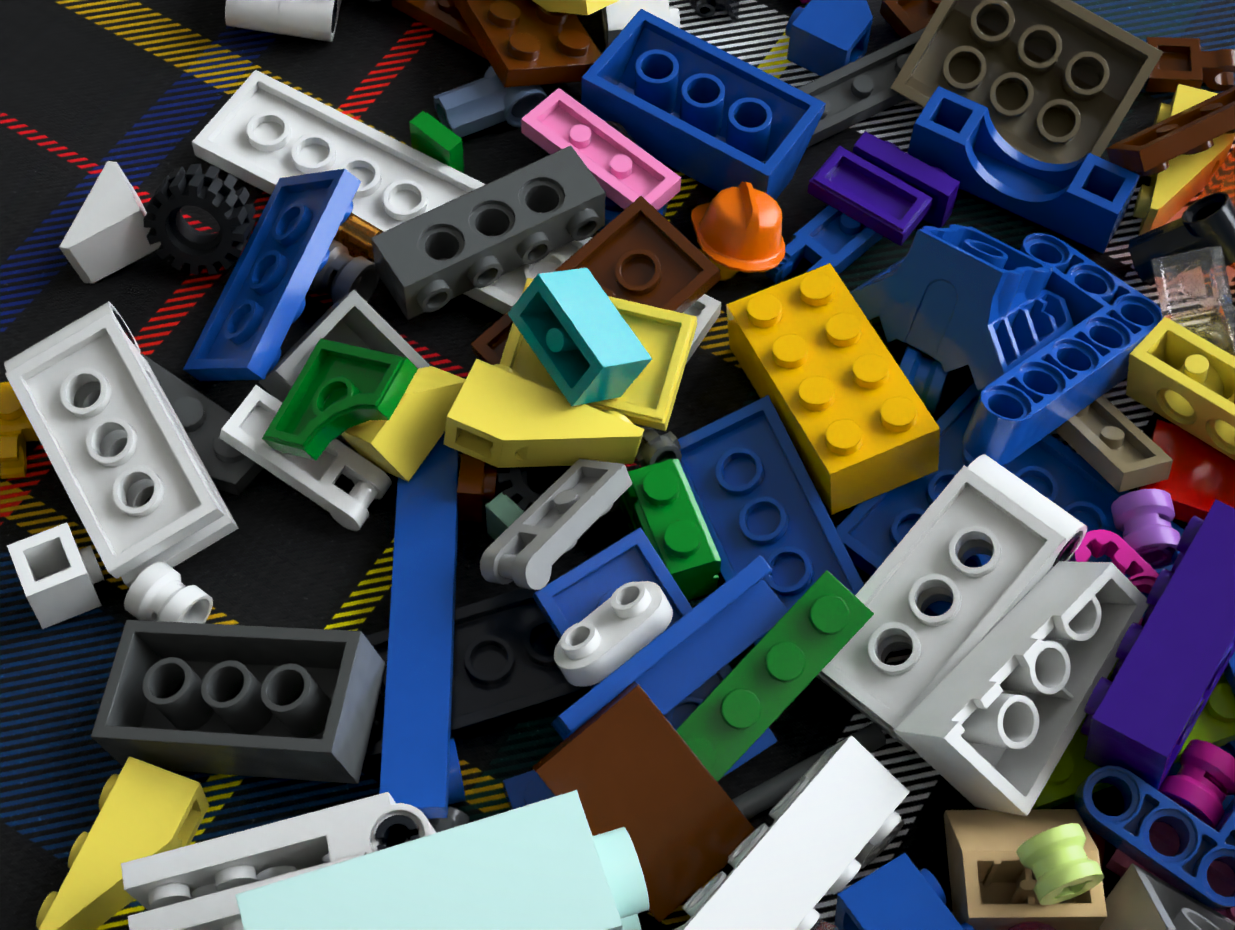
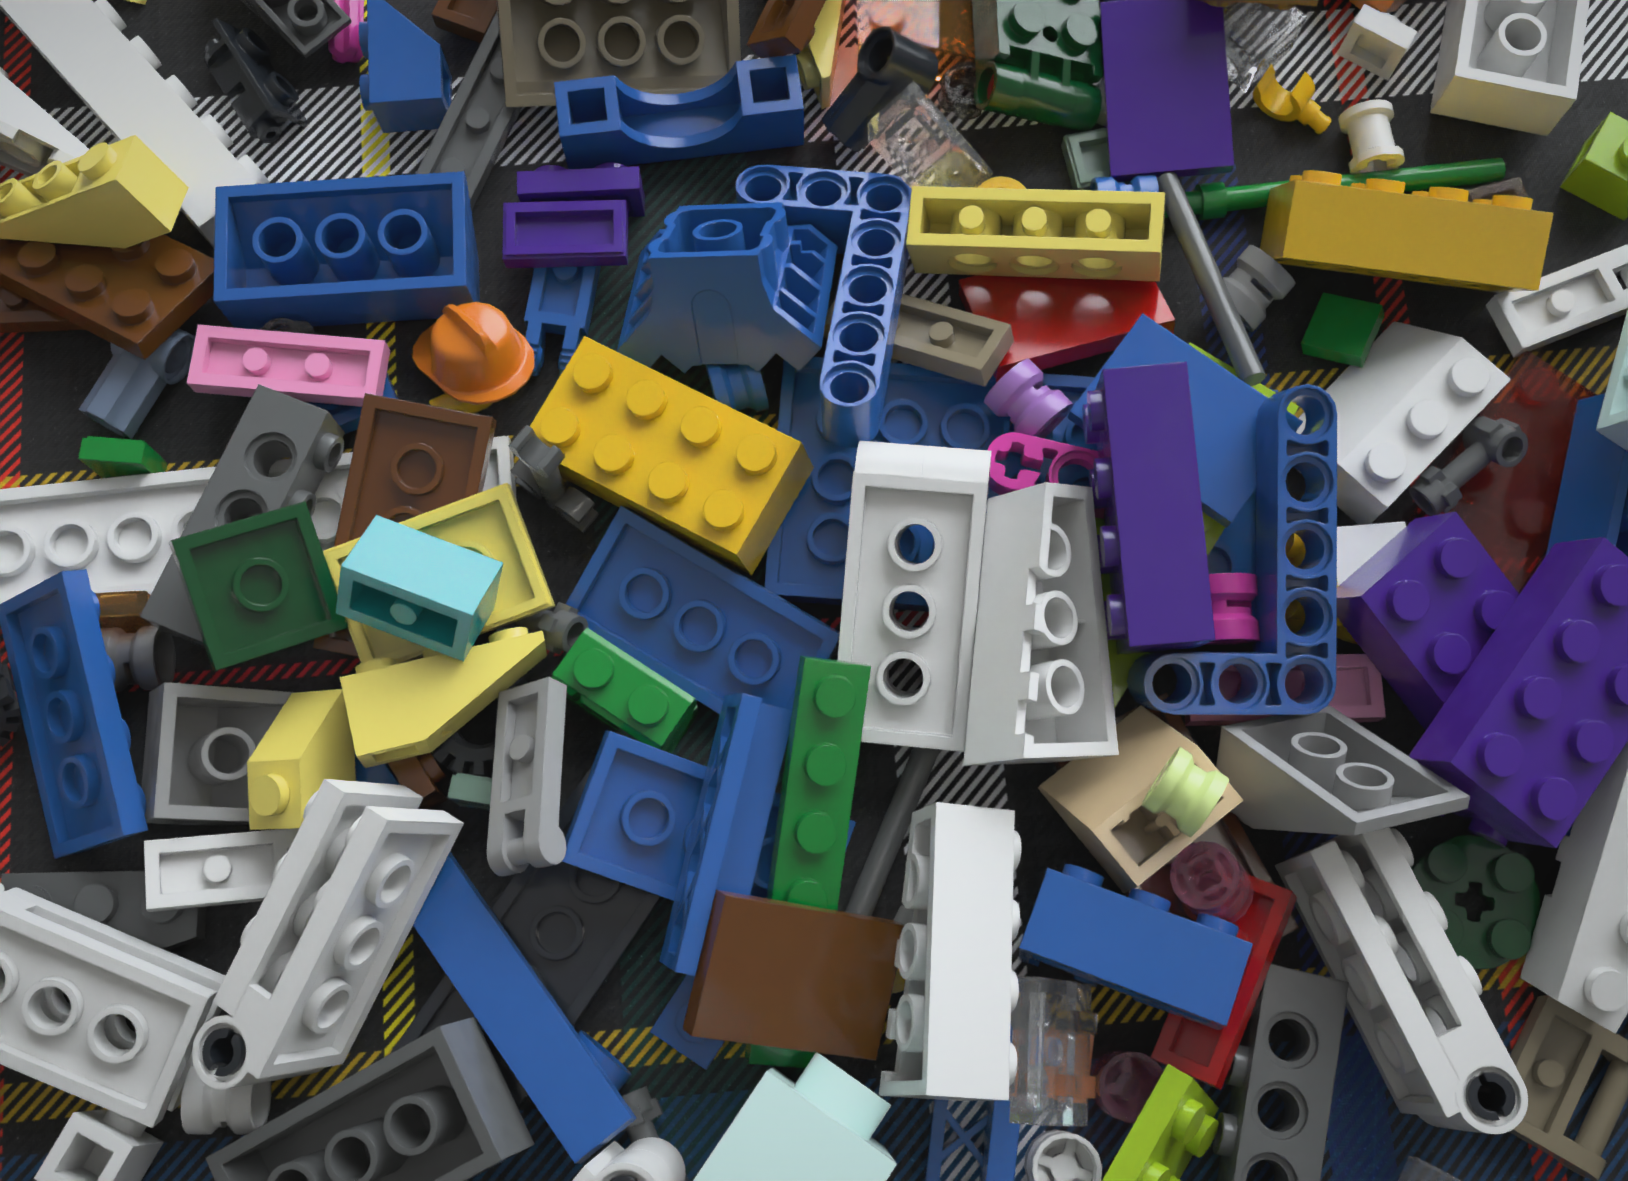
camera: 35 degrees left, 15 degrees up
(329, 526) = (324, 934): none -> white hinge
(335, 392) = (231, 802): green tile -> none
(468, 267) = (258, 585): none -> dark green plate
(613, 633) = (660, 851): white plate -> none
(725, 340) = (540, 477): none -> dark grey bar

